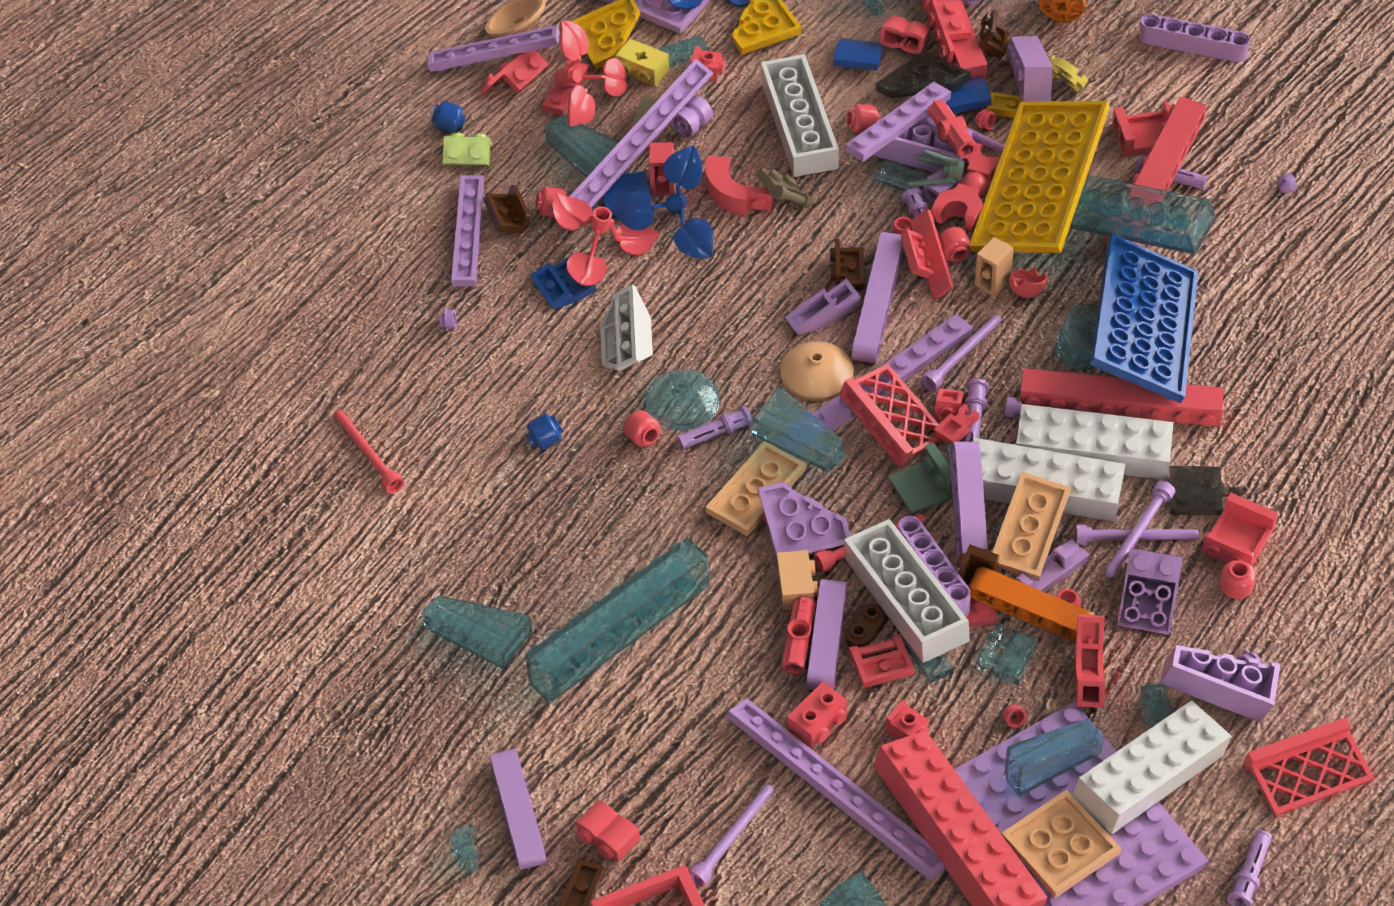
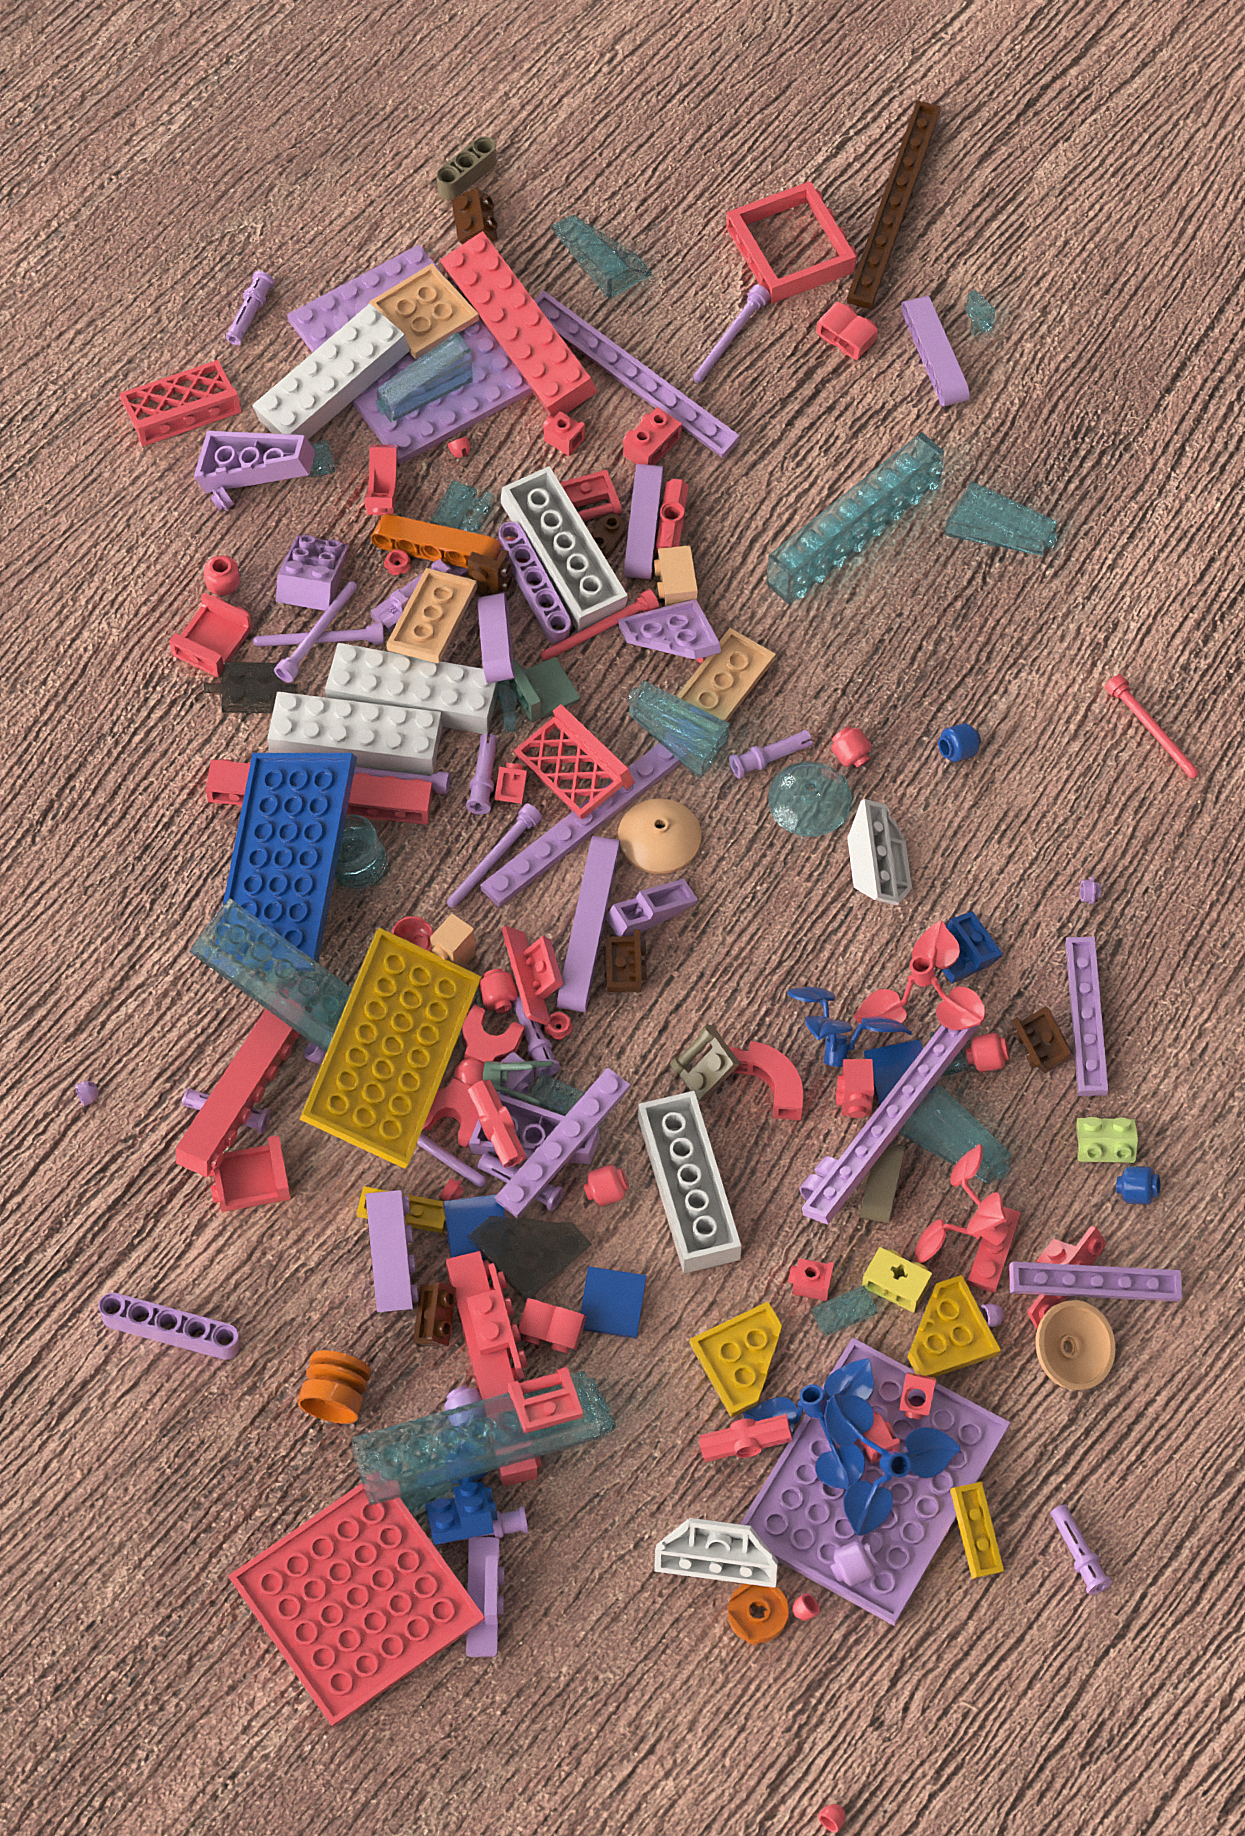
camera: 175 degrees right, 10 degrees up
(956, 427) = (506, 744): coral plate -> none
(1068, 72) = (344, 1234): light yellow plate -> none

